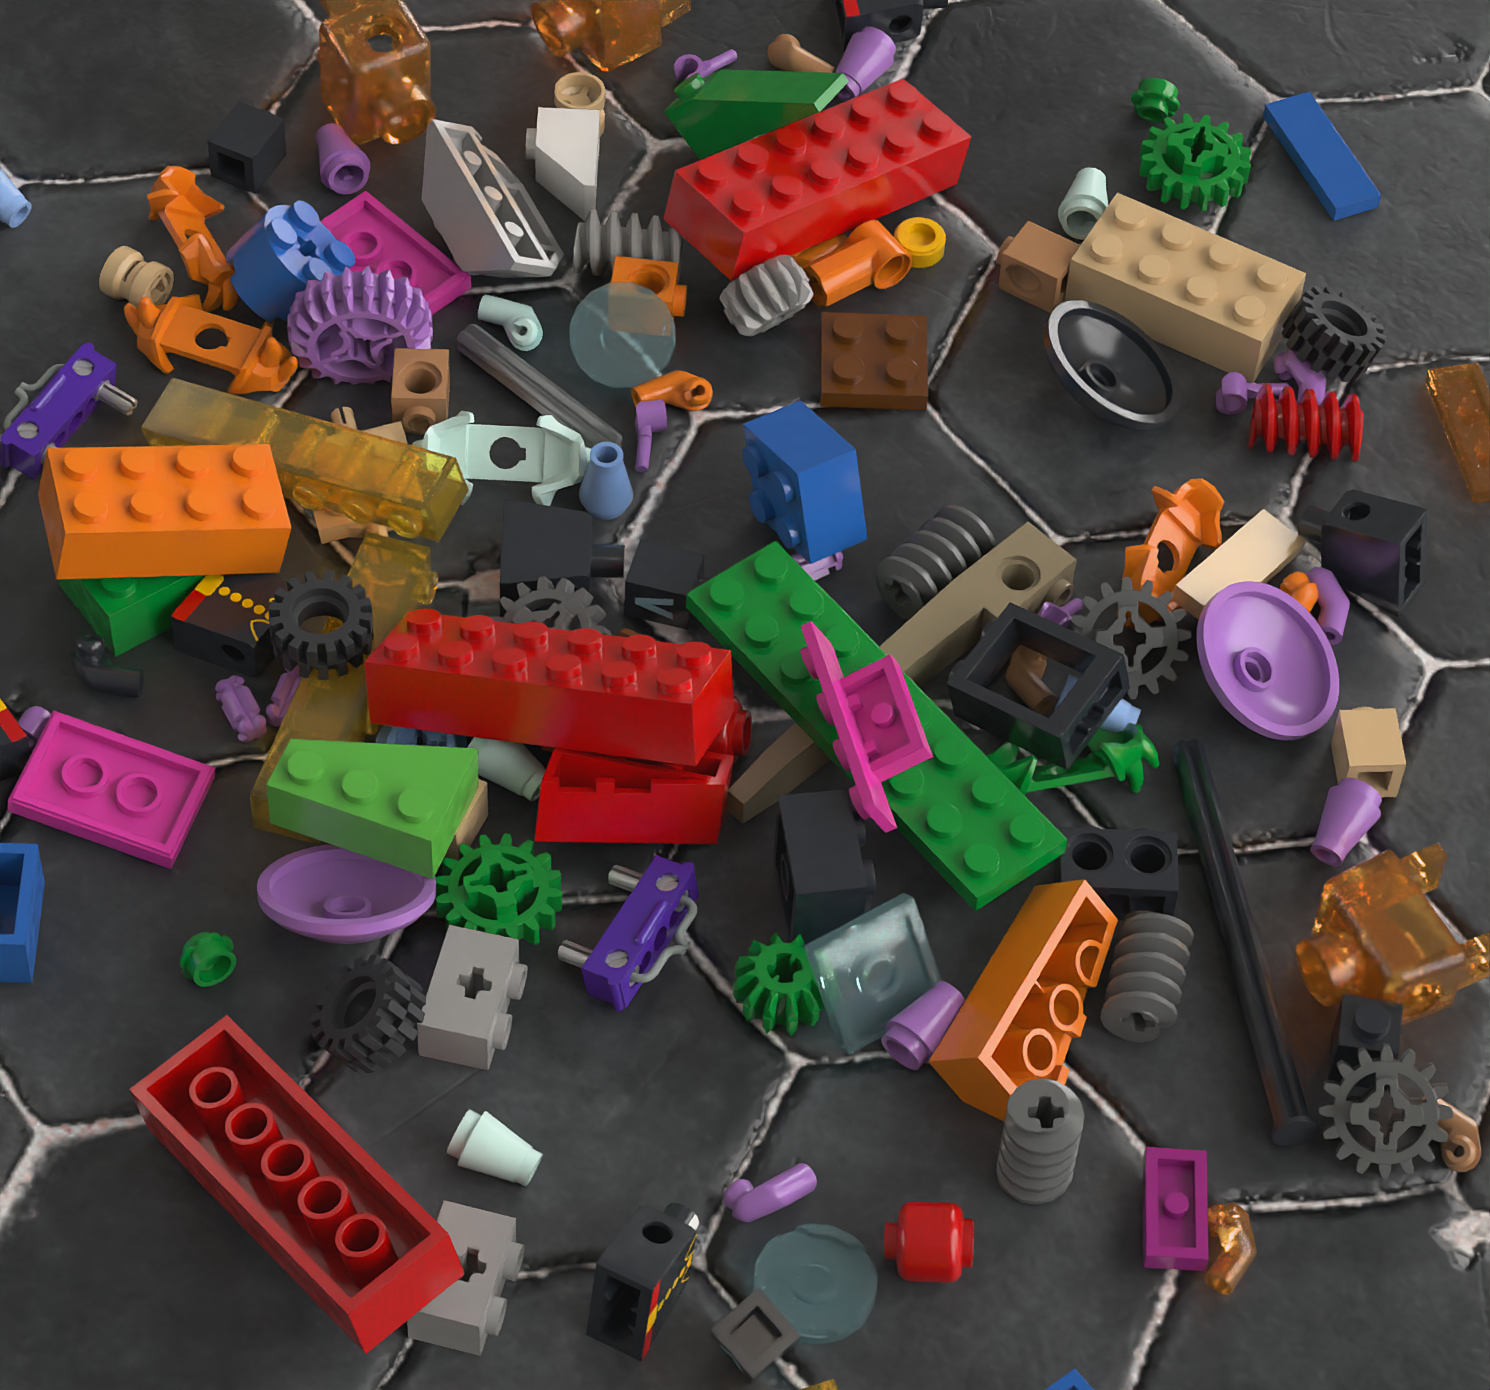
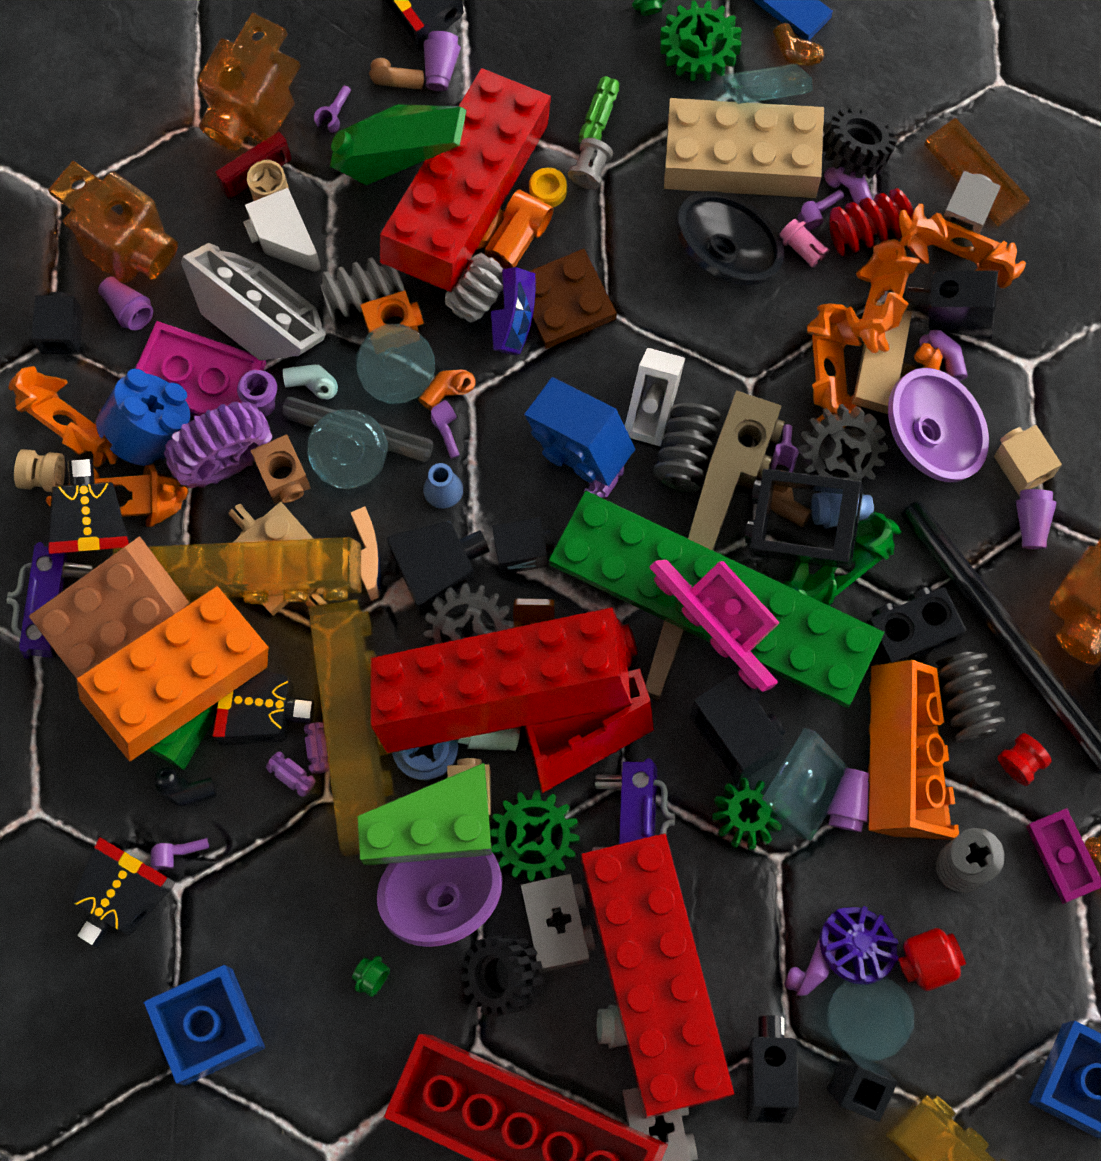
camera: 20 degrees left, 20 degrees up
(111, 789) = (239, 879): dark pink tile -> none
(132, 404) = (109, 608): none -> nougat brick
(158, 325) = (84, 513): none -> black torso
(316, 599) = (310, 679): black tyre -> none
(446, 293) = (258, 389): none -> medium lavender cone
(473, 518) = (370, 555): none -> light nougat slope
(513, 391) = (347, 448): none -> clear light blue tile
(542, 76) = (234, 174): none -> dark red tile
(553, 452) = (333, 503): light aqua piece -> none
(555, 1082) = (656, 976): none -> red brick
(795, 347) = (513, 323): none -> dark purple slope
(844, 1189) = (858, 945): none -> dark purple wheel
(926, 481) = (653, 396): none -> white slope
(984, 233) = (592, 179): none -> light grey bush
(1027, 190) = (600, 109): none -> bright green axle
(1036, 266) = (638, 174): medium nougat brick -> none
(1083, 203) = (644, 108): light aqua cone -> none
(1180, 1075) = (1024, 759): none -> red wheel
(1203, 407) = (803, 242): none -> bright pink pin
(1250, 228) = (767, 83): none -> clear light blue tile
(1285, 486) = (886, 271): none -> orange piece
(1314, 220) = (797, 50): none -> clear orange arm
(1375, 451) = (987, 255): none -> orange piece
(1429, 452) = (971, 204): none -> light grey brick

